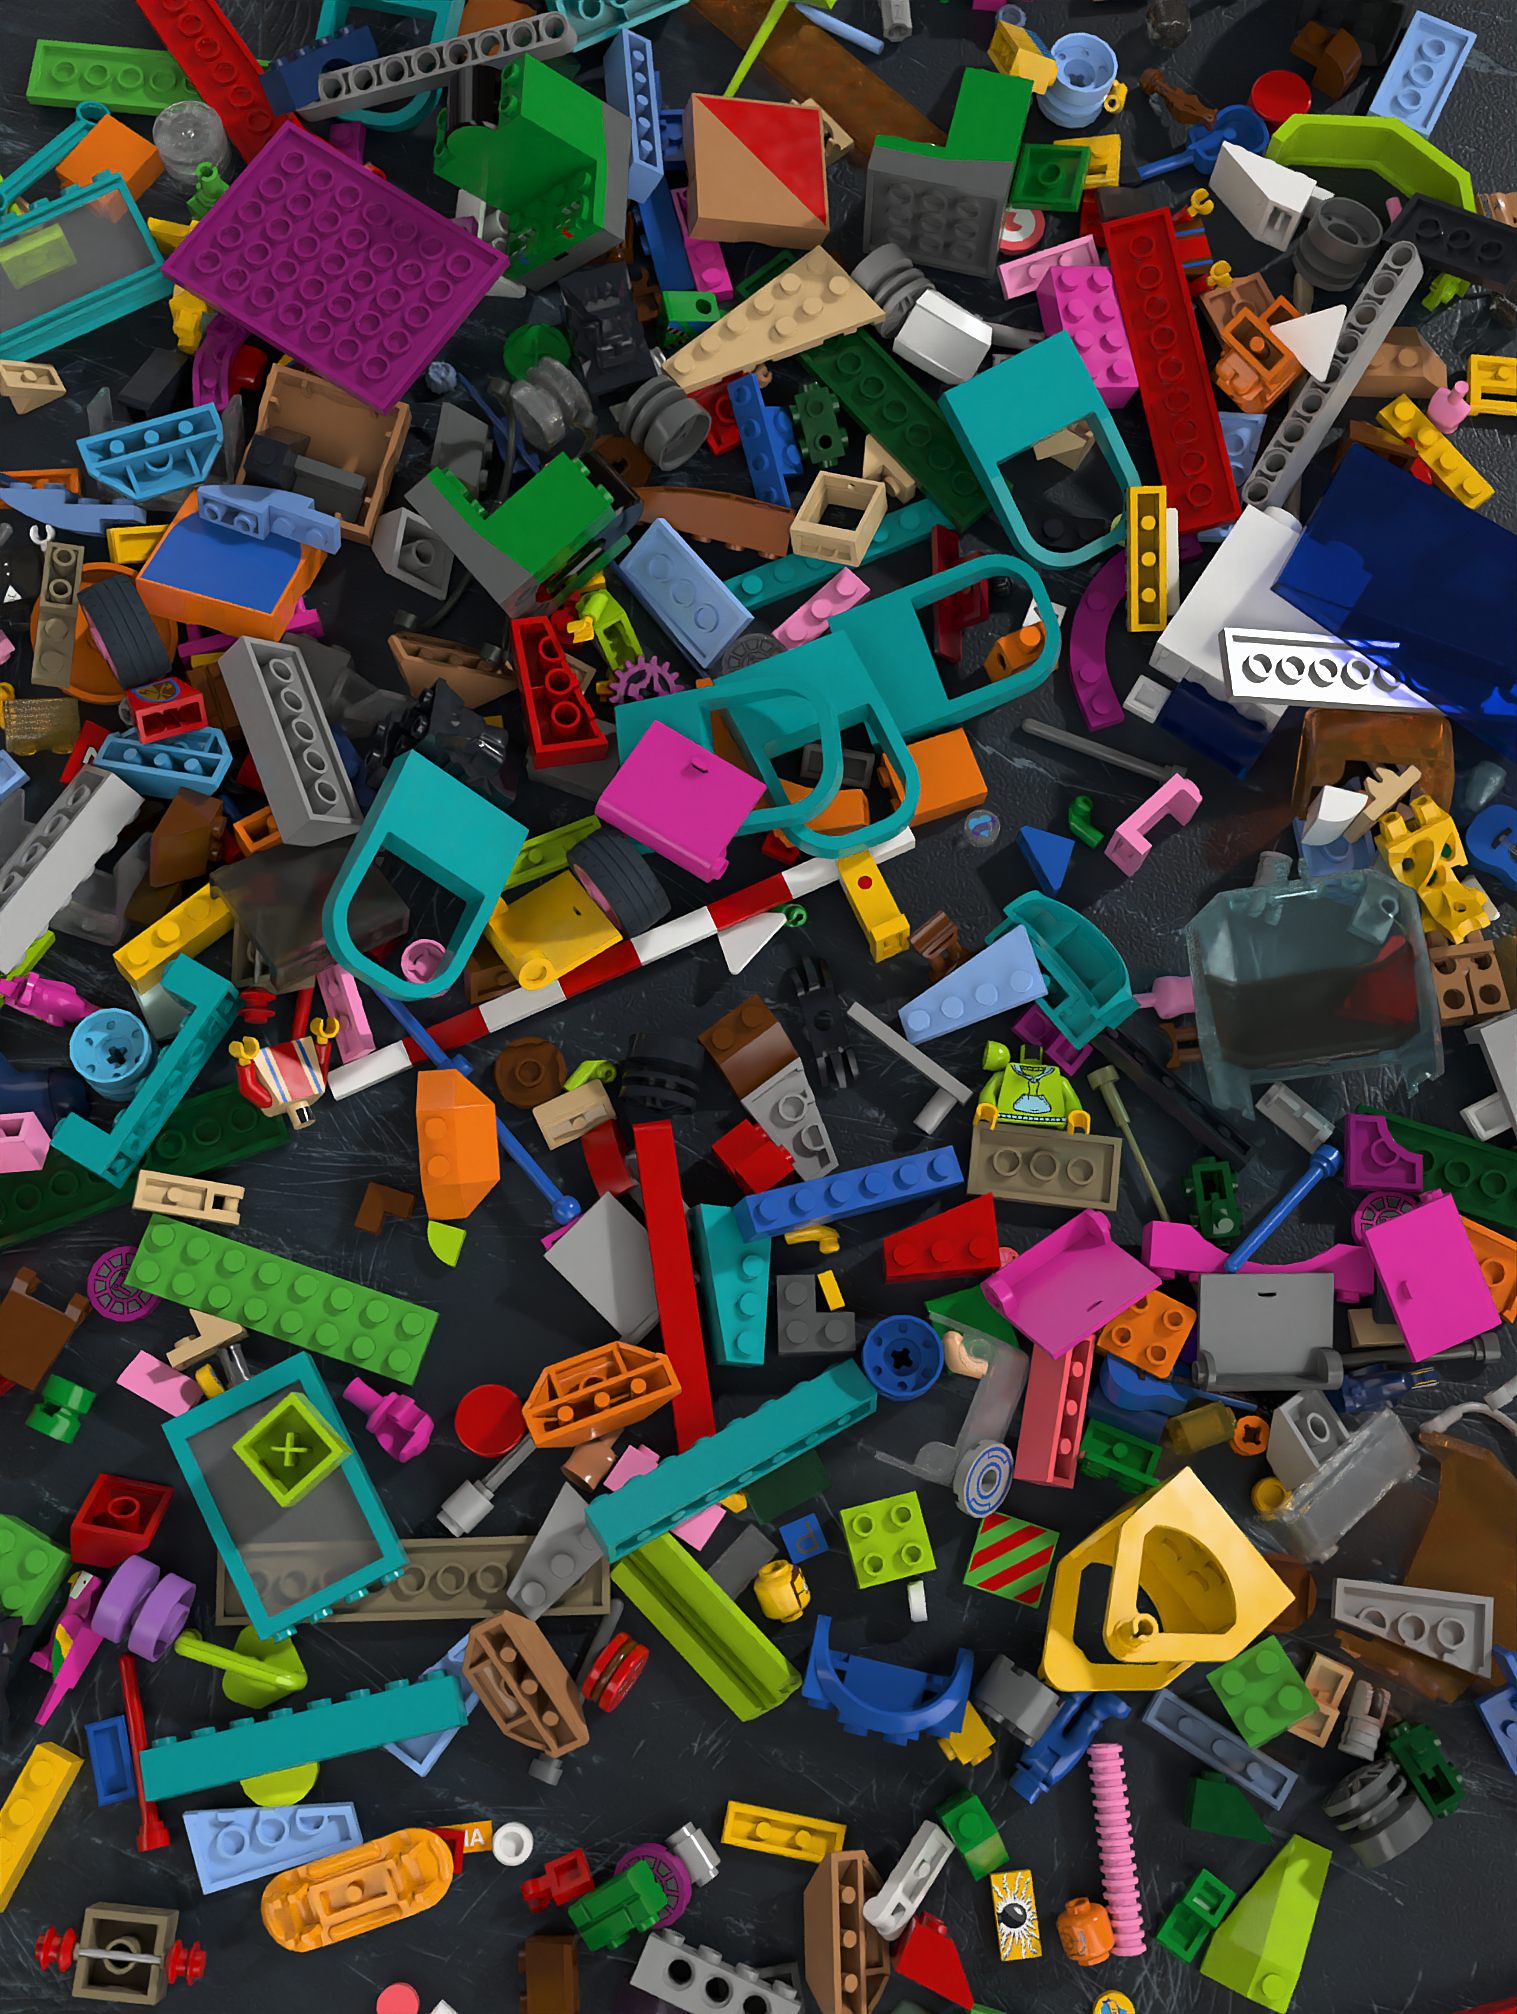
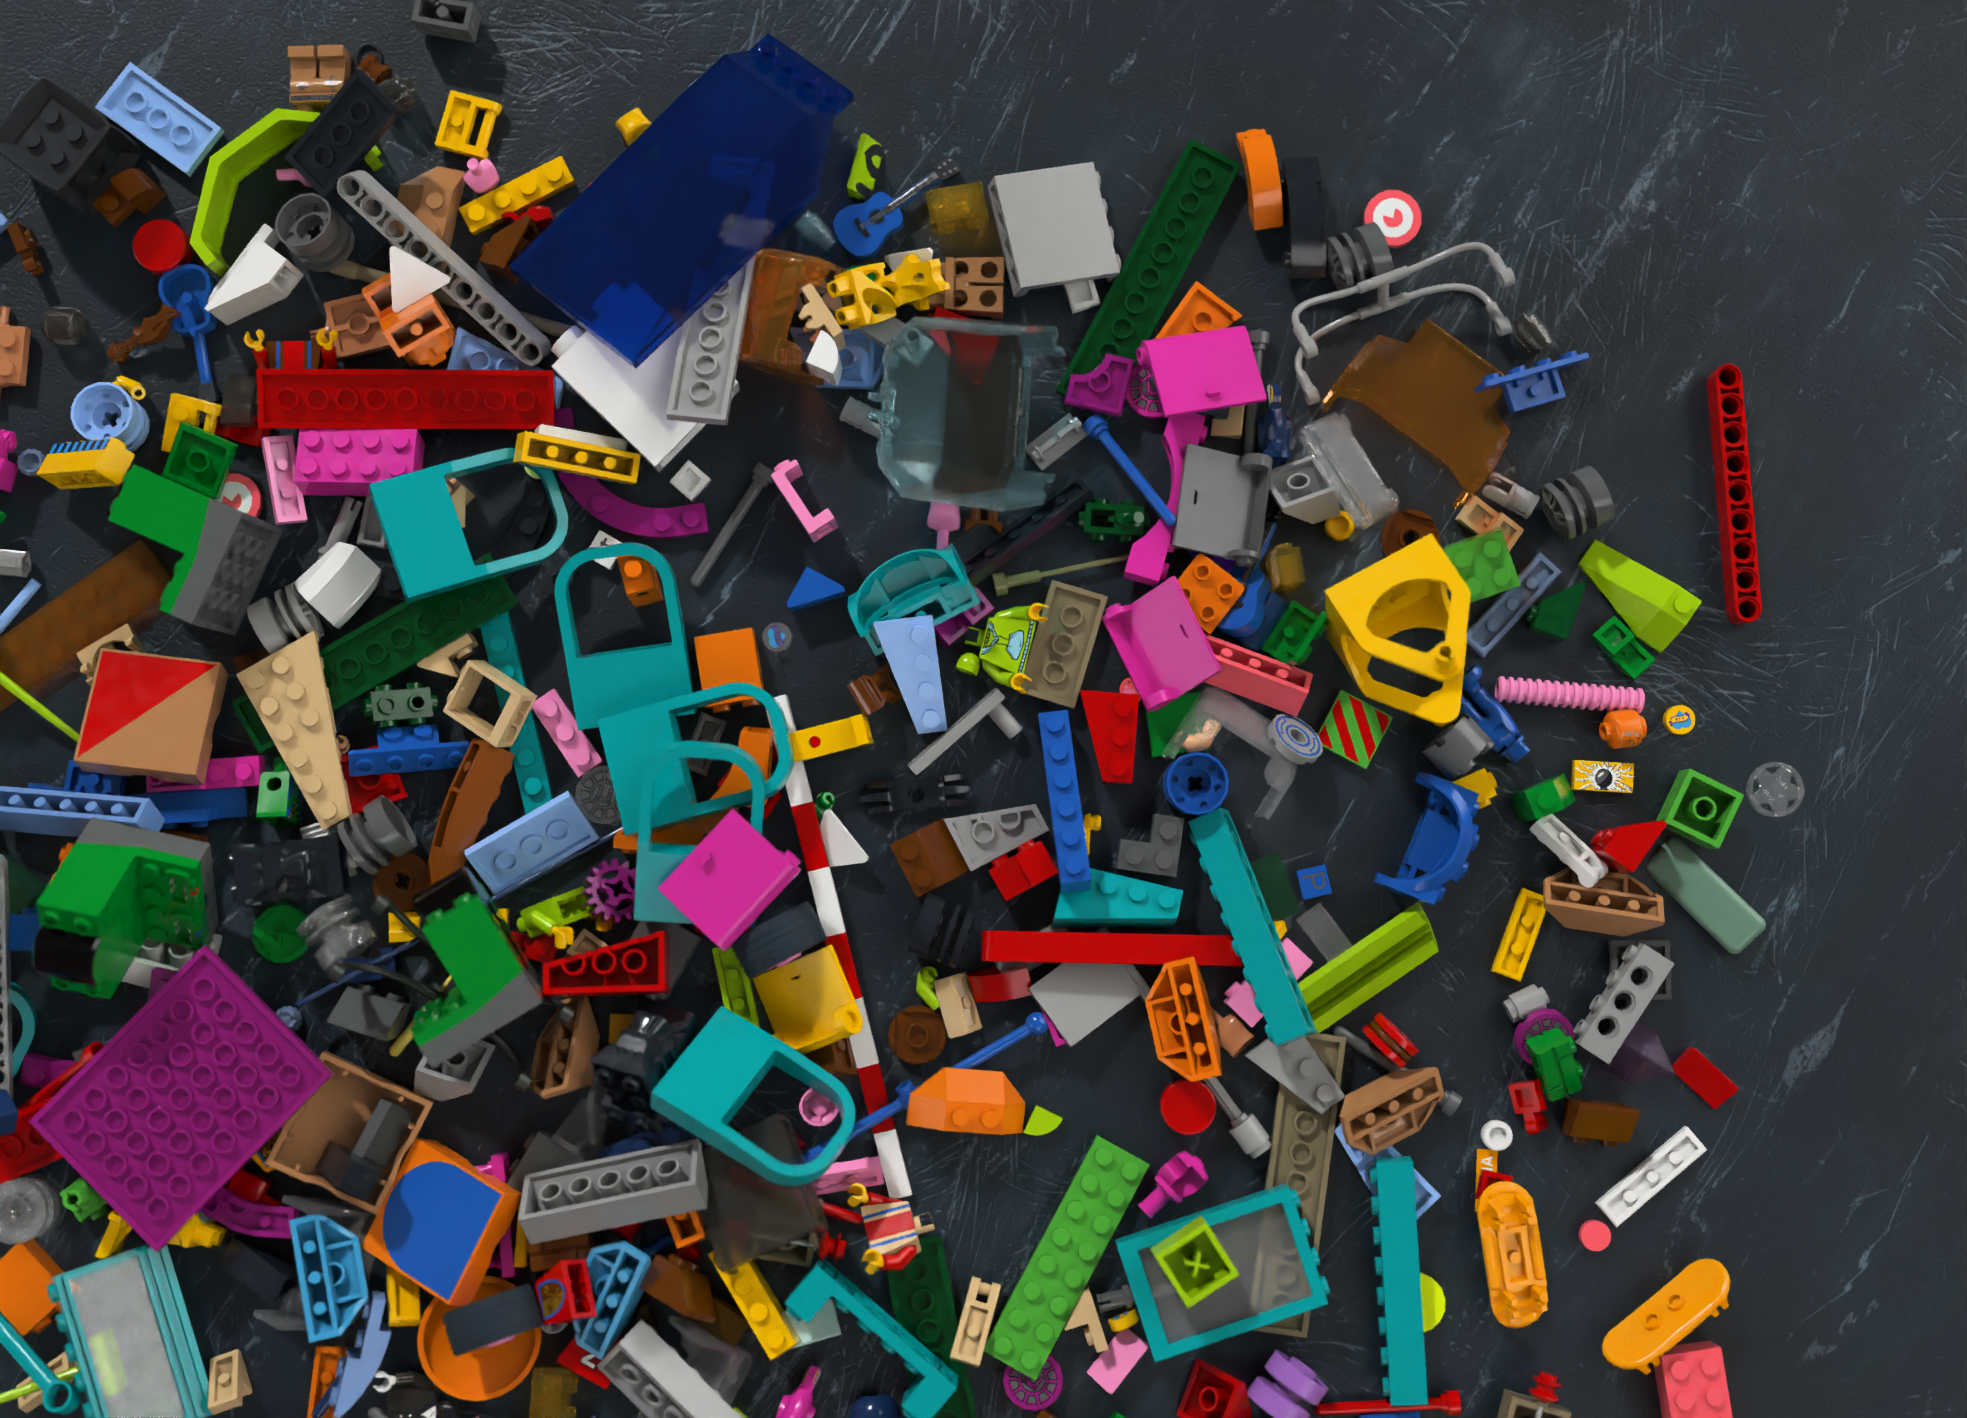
camera: 75 degrees left, 10 degrees up
(57, 615) = (464, 1375): dark tan slope -> none
(104, 1040) = (849, 1383): medium azure wheel -> none
(255, 1669) = (1343, 1315): lime piece -> none
(259, 1841) = (1466, 1328): light blue wing -> none
(267, 510) = (398, 1191): medium blue slope -> none
(379, 1203) = (1002, 1169): reddish brown piece -> none
(646, 299) = (249, 831): reddish brown plate -> none
(781, 1591) = (1350, 905): yellow head -> none
(830, 1291) = (1133, 828): yellow tile -> none
(887, 1540) = (1326, 820): lime brick -> none
(917, 1601) = (1374, 805): white tile -> none
(958, 609) = (587, 618): dark red bracket -> none
(1079, 821) = (786, 557): green arm -> none
(1213, 728) = (720, 443): clear blue brick -> none
(1243, 1438) = (1287, 534): orange wheel -> none
(1418, 1758) = (1540, 465): dark green brick -> none
(1431, 1622) = (1450, 431): light grey wing -> none

